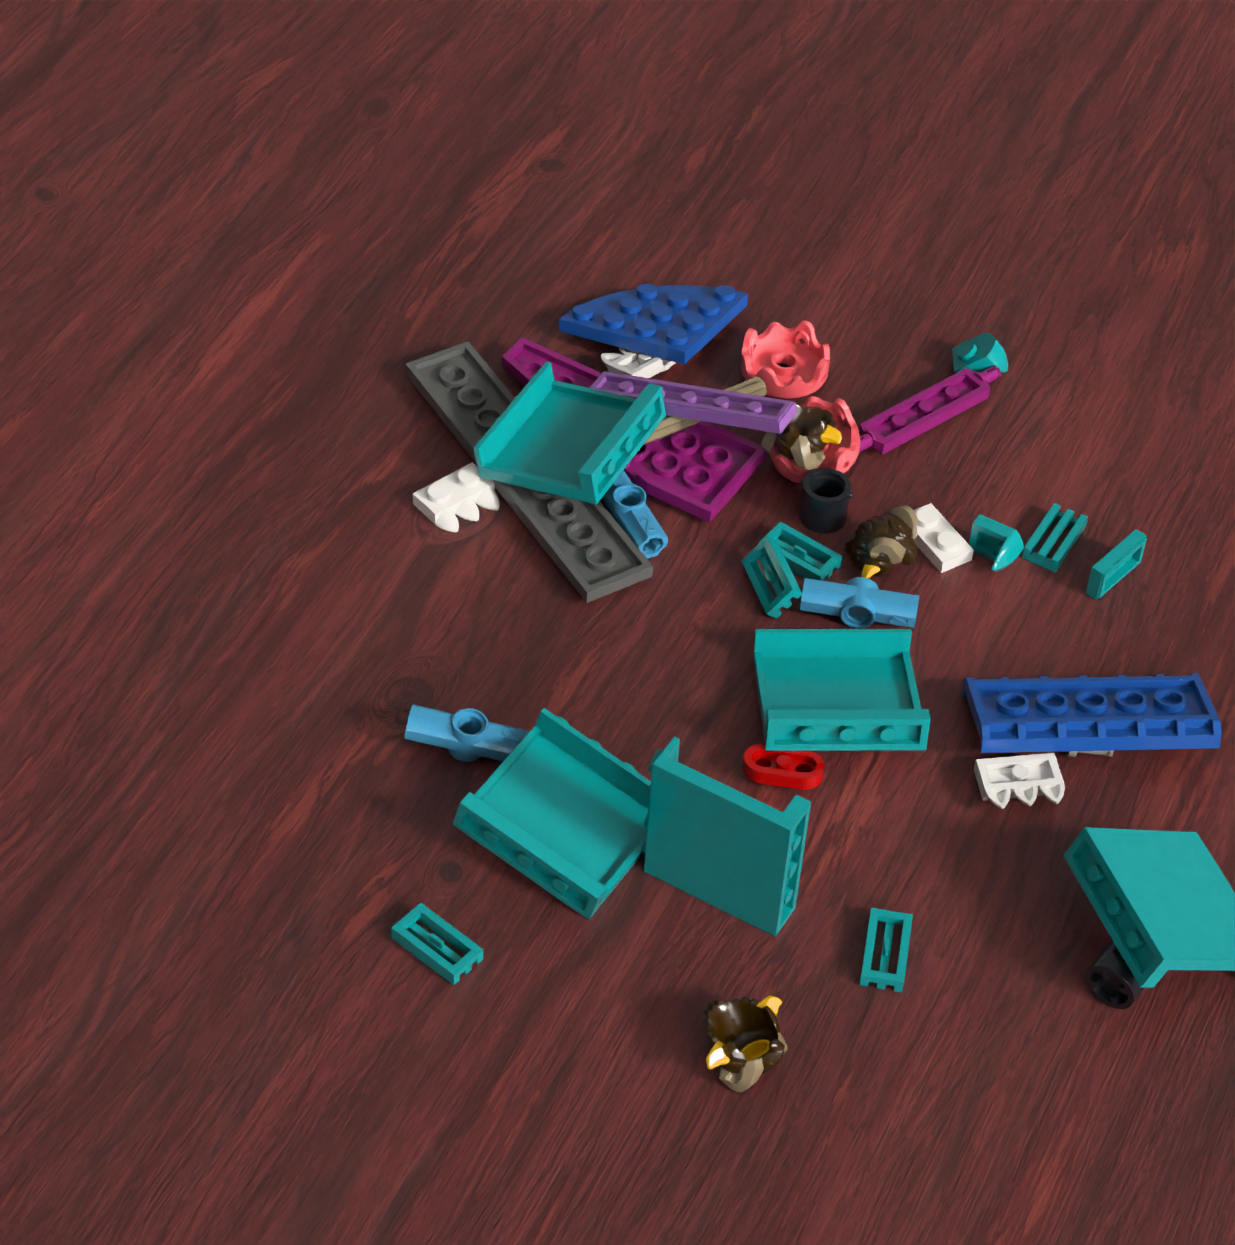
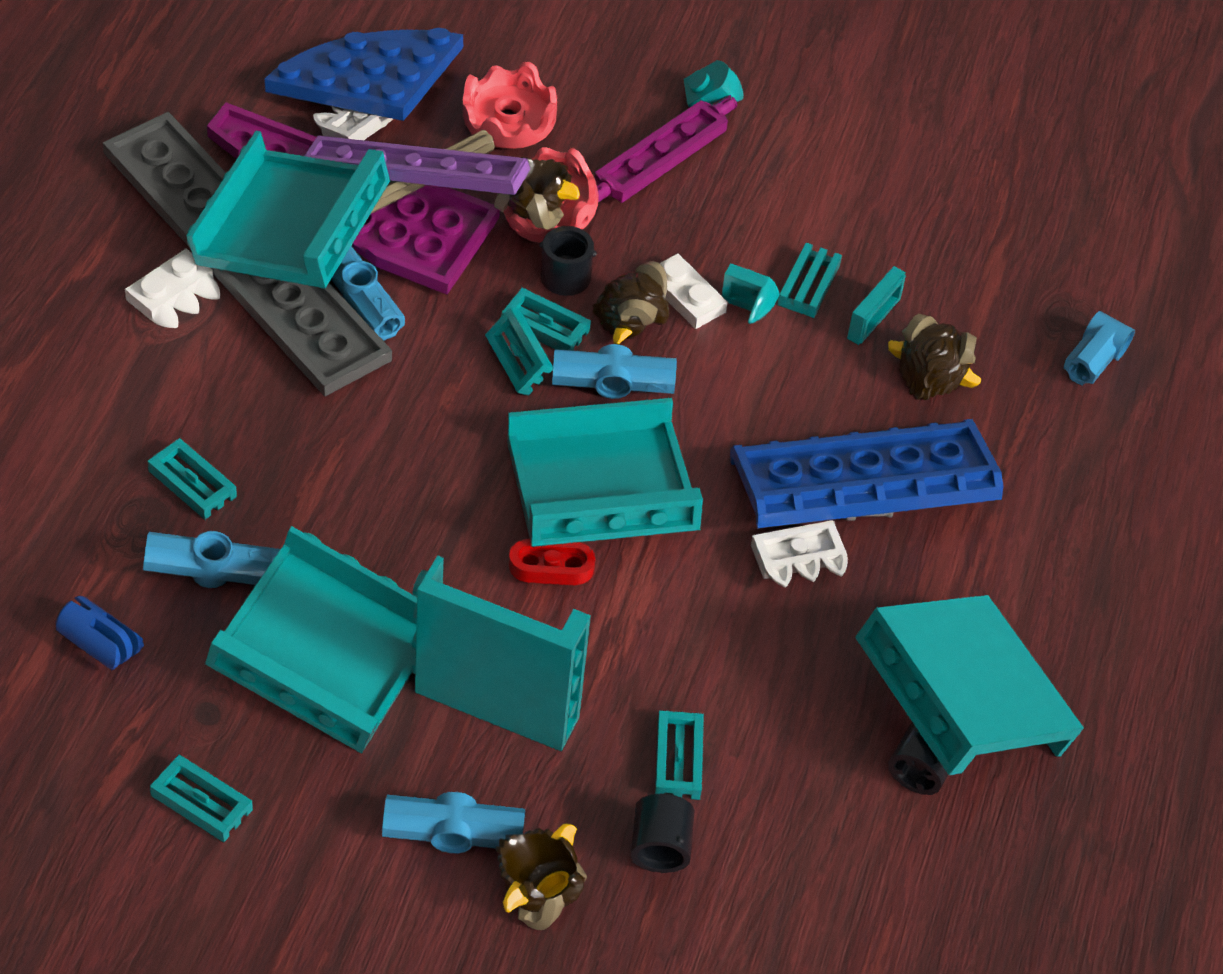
camera: 10 degrees left, 5 degrees up
(357, 789) = (98, 633): none -> blue arm
(451, 668) = (202, 507): none -> teal tile
(664, 986) = (450, 822): none -> dark azure piece
(862, 1015) = (662, 833): none -> black piece
(1168, 615) = (935, 357): none -> dark brown hair

